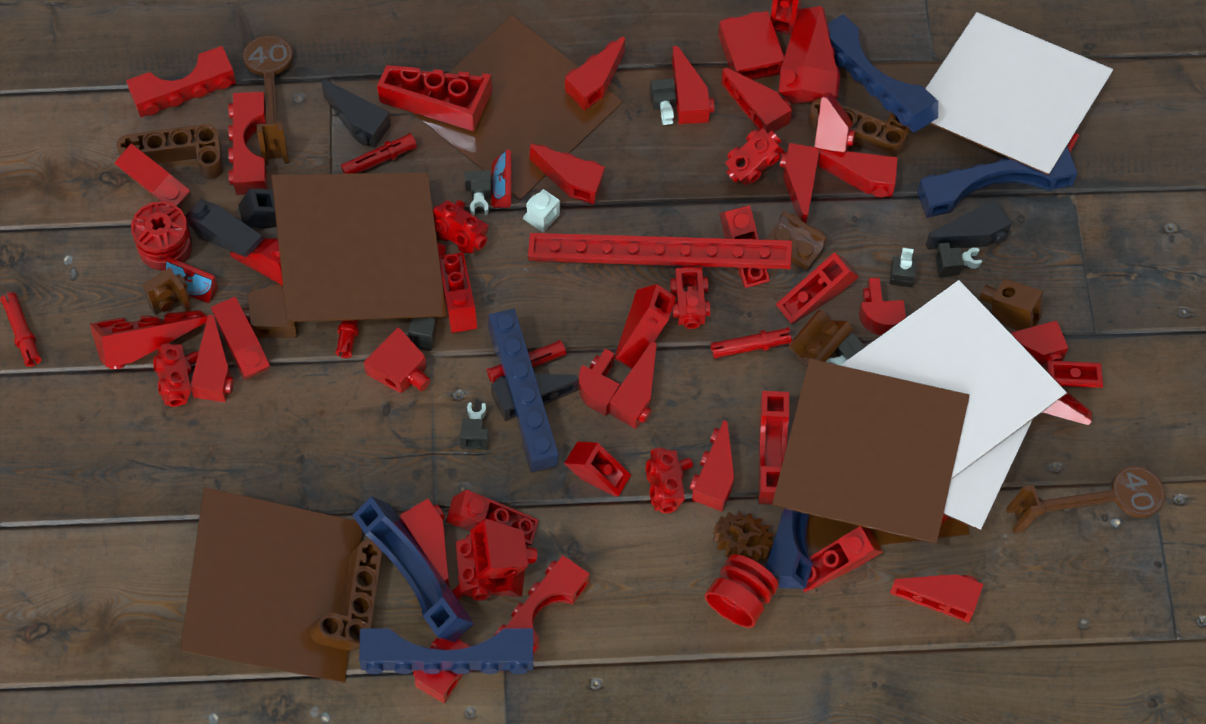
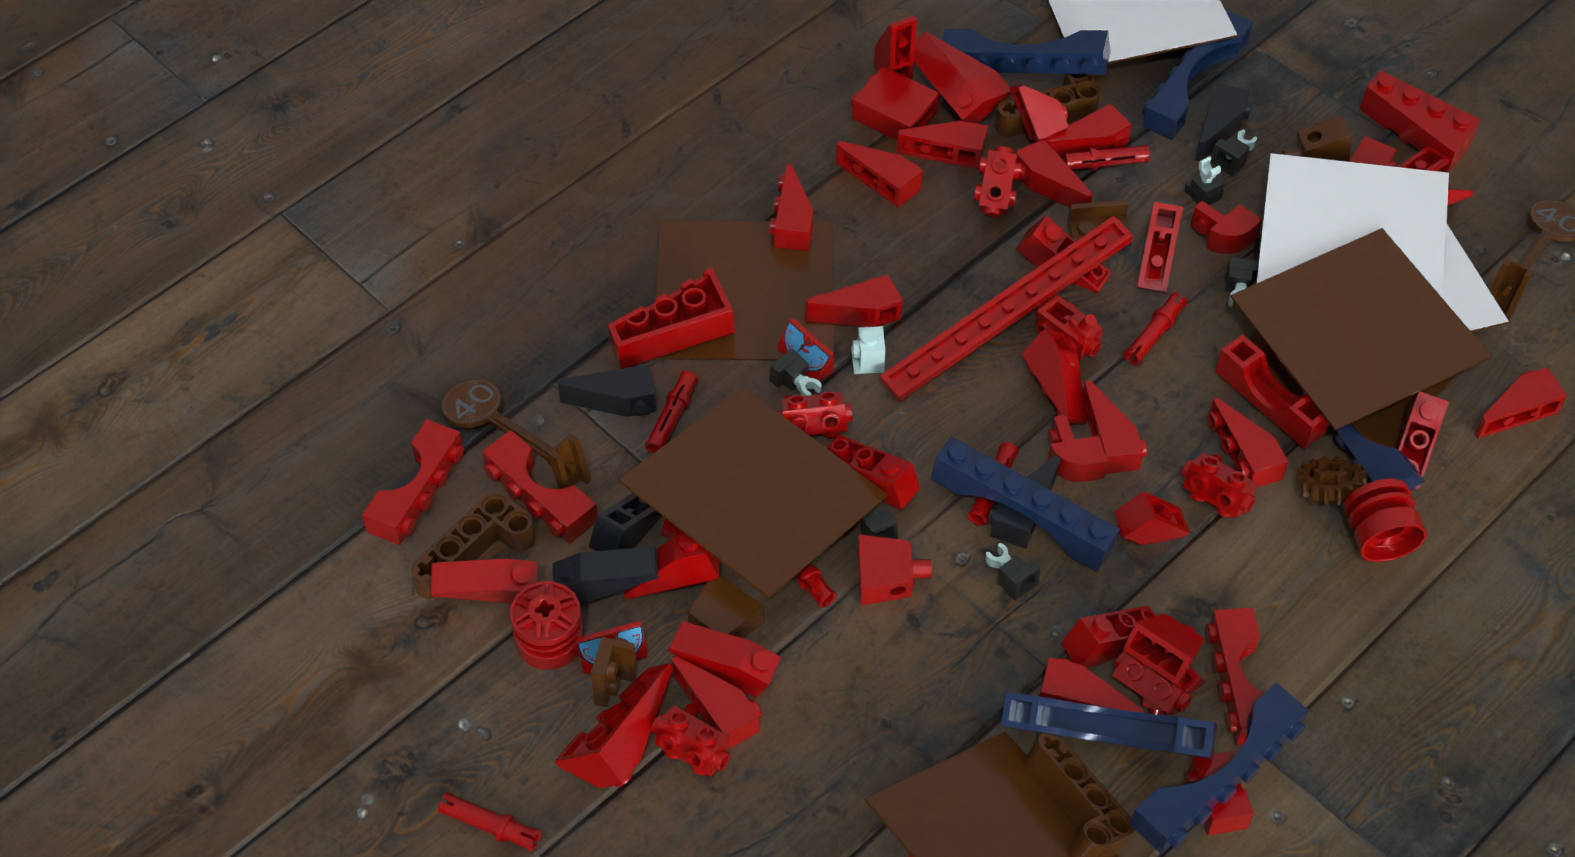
camera: 40 degrees left, 10 degrees down
(663, 98) = (866, 191): pearl dark grey piece -> none
(819, 338) = (1208, 283): reddish brown bracket -> none
(857, 195) = (1108, 157): none -> red pin
(1121, 341) = (1419, 117): none -> red wedge

